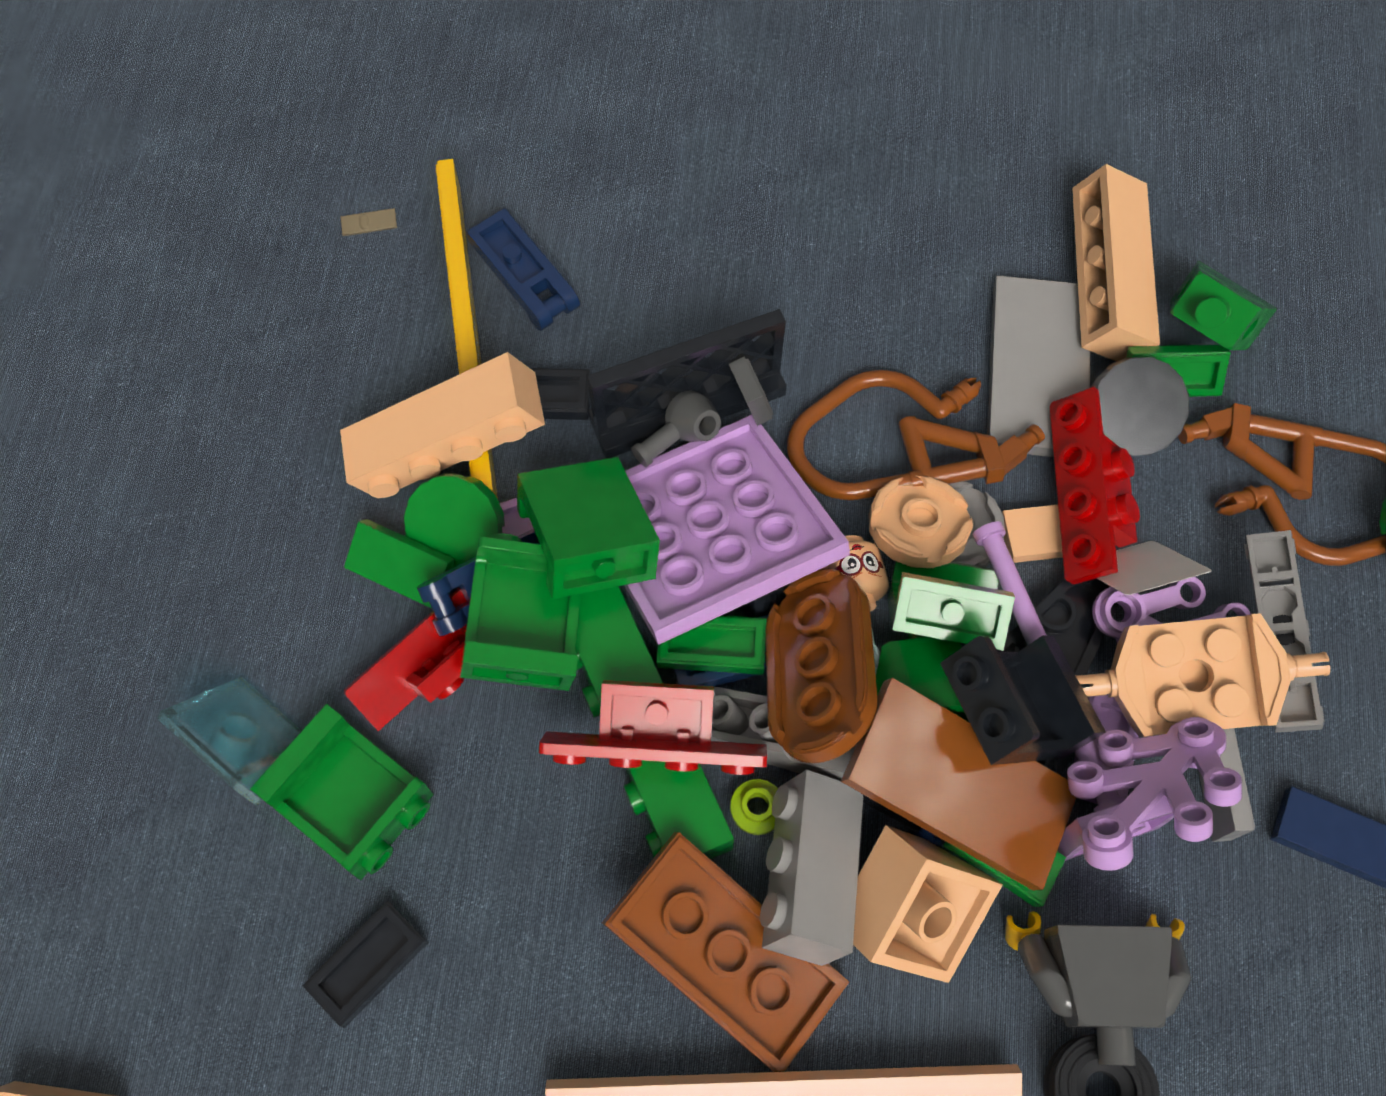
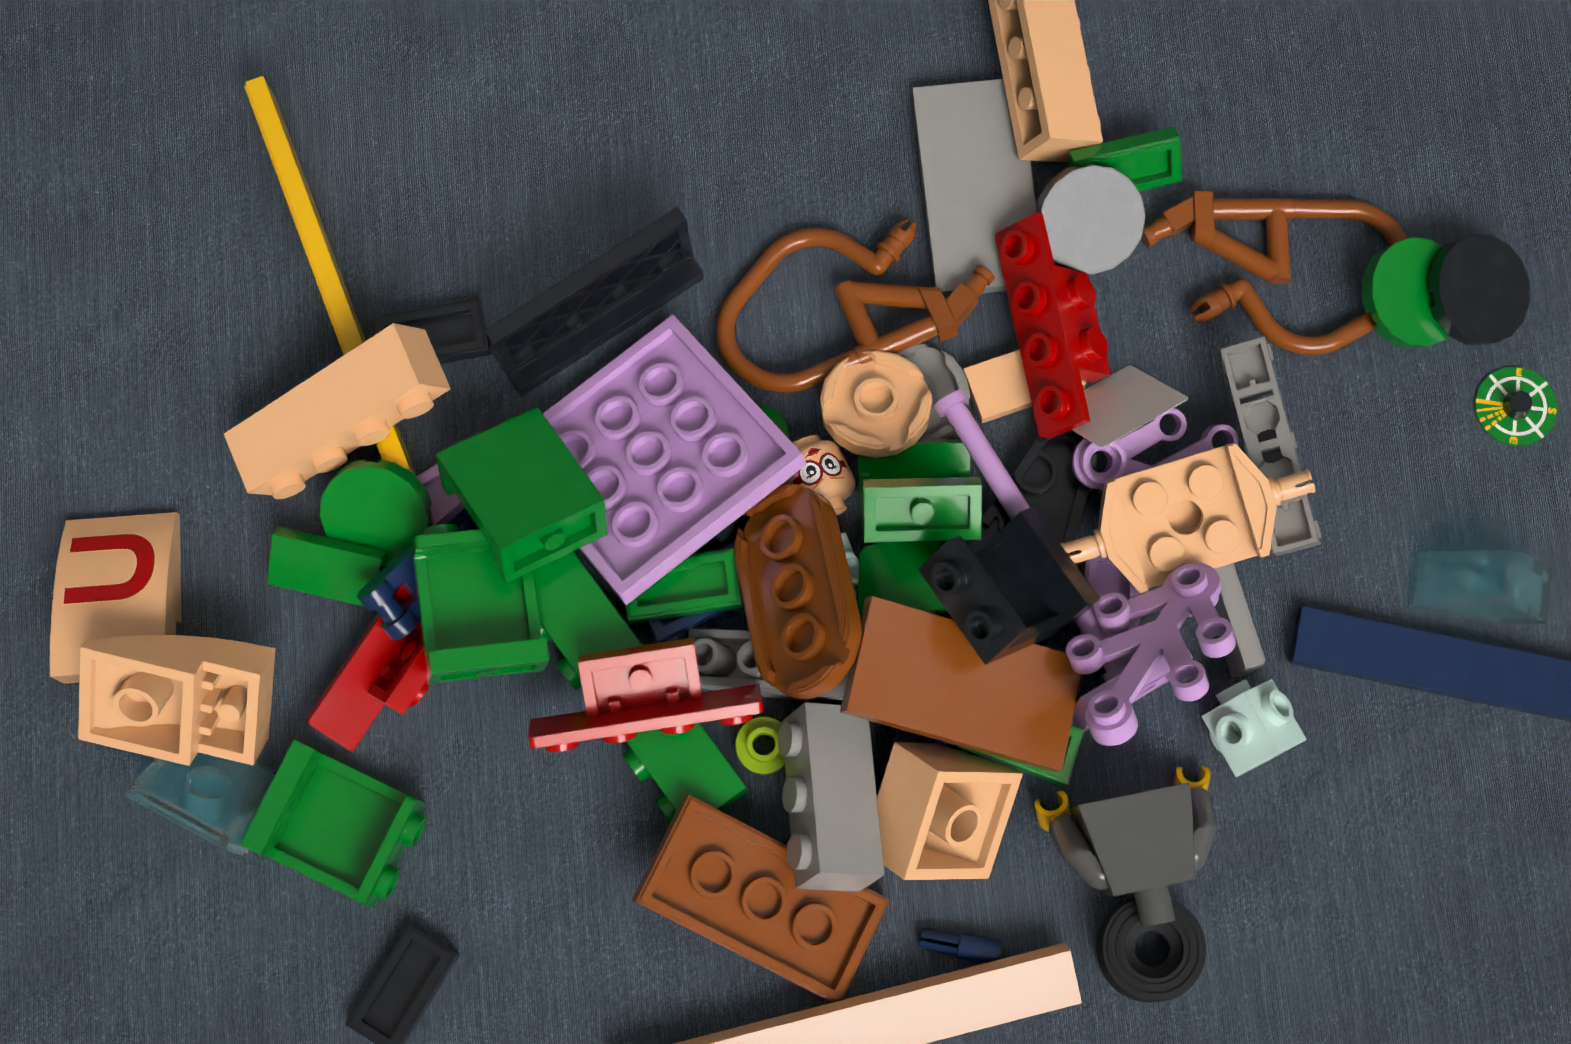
camera: 10 degrees left, 10 degrees up
(207, 554) = (112, 583): none -> light nougat slope
(232, 641) = (176, 696): none -> light nougat slope
(368, 222) = (180, 164): dark tan piece -> none
(522, 268) = (373, 189): dark blue plate -> none
(687, 418) = (602, 337): dark grey bar -> none
(751, 390) = (665, 294): dark grey tile -> none
(918, 1048) = (970, 947): none -> dark blue pin
(1220, 308) = (1163, 83): green torso -> none
(1233, 888) = (1252, 725): none -> light aqua brick

